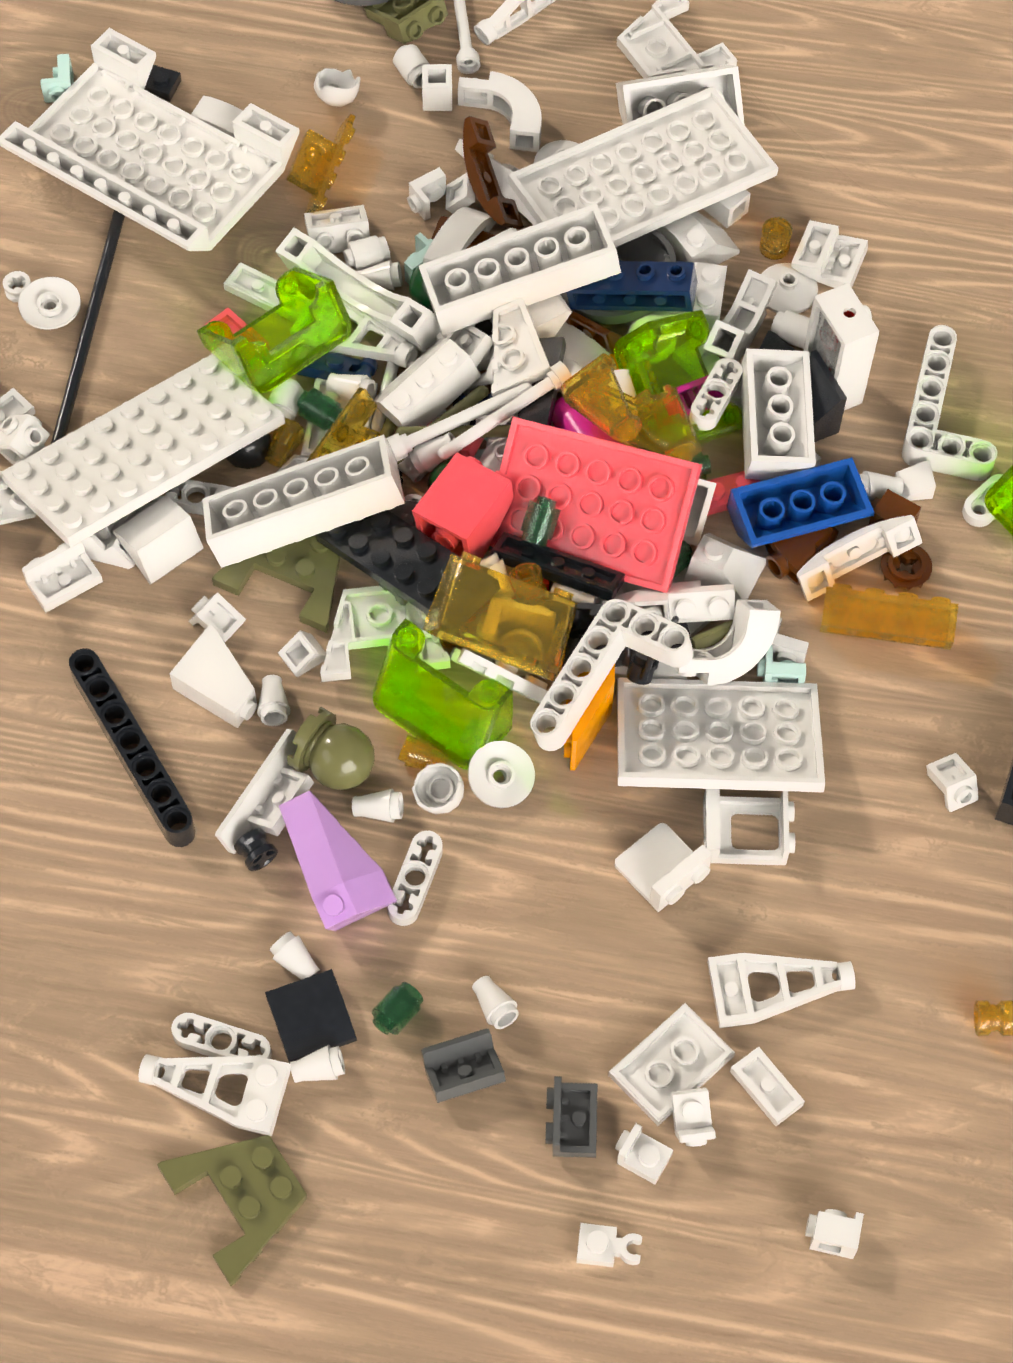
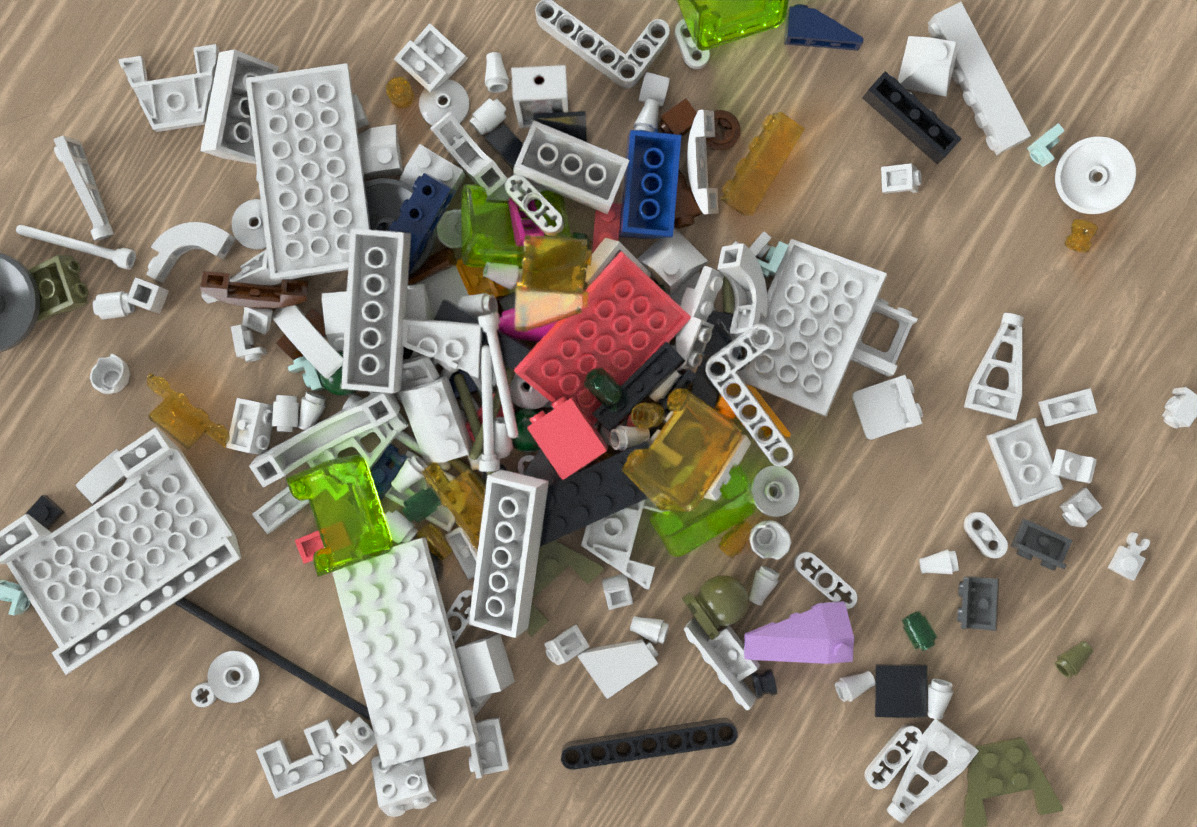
camera: 70 degrees left, 25 degrees up
(439, 1219) = (1073, 660): none -> olive cone
(553, 1046) = (985, 534): none -> white plate

